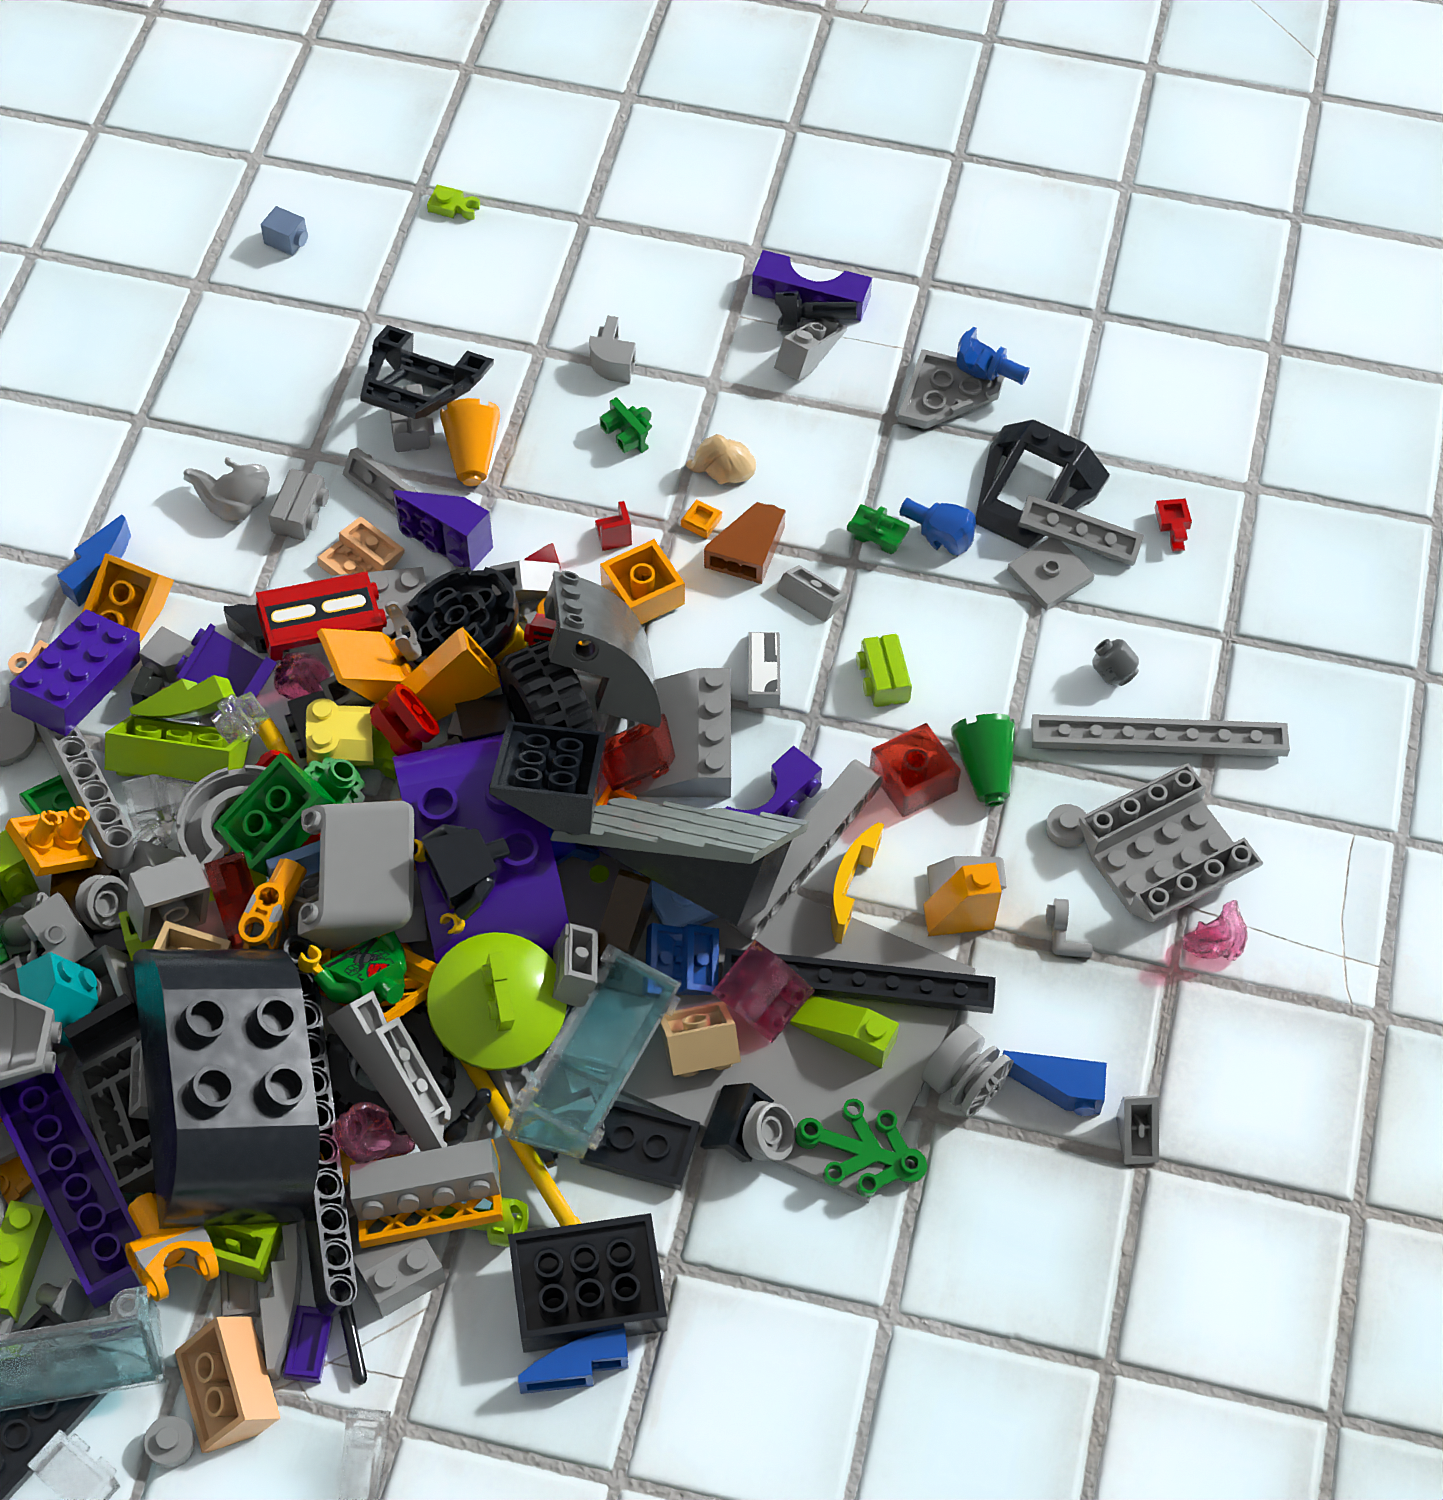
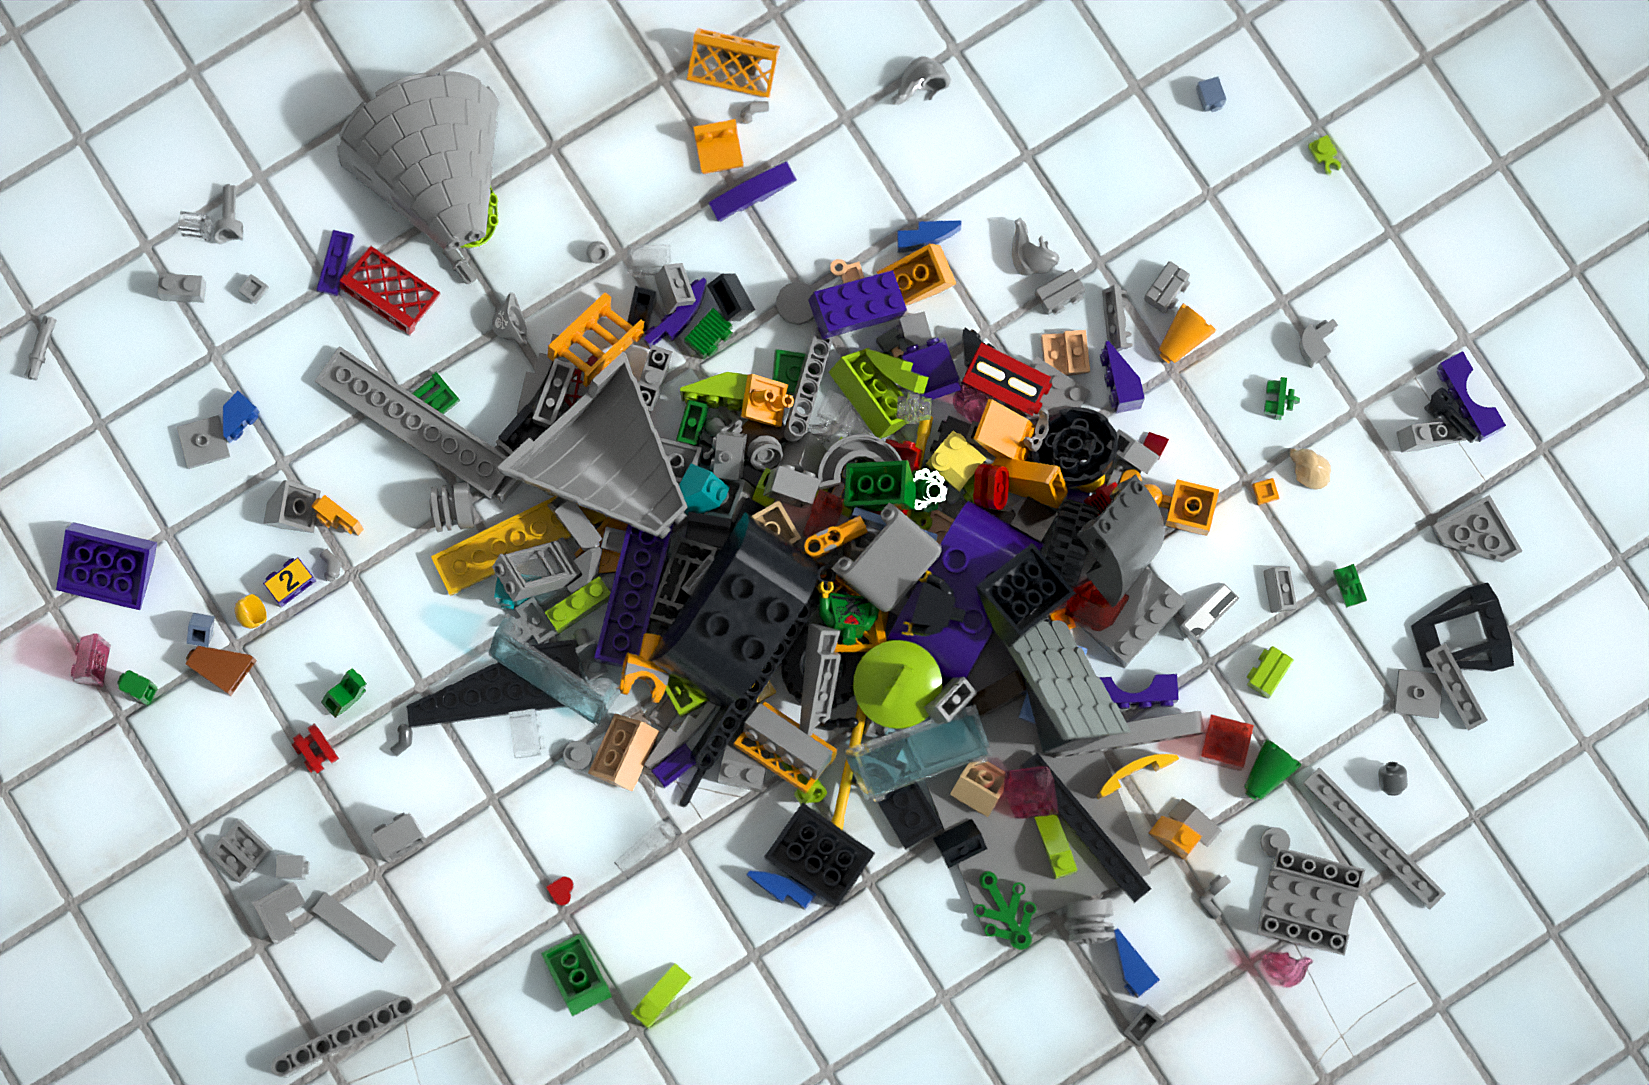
camera: 45 degrees right, 20 degrees up
(369, 1134) = (780, 697): clear pink hair -> none
(397, 349) = (1212, 280): black windscreen -> none
(615, 530) = (1211, 457): red panel -> none
(686, 955) = (1012, 737): blue slope -> none
(747, 543) = (1274, 531): dark orange slope -> none
(768, 1131) = (968, 863): light grey piece -> none
(943, 524) = (1386, 614): blue piece -> none
(984, 363) = (1511, 537): blue piece -> none
(1175, 517) = (1518, 724): red plate -> none

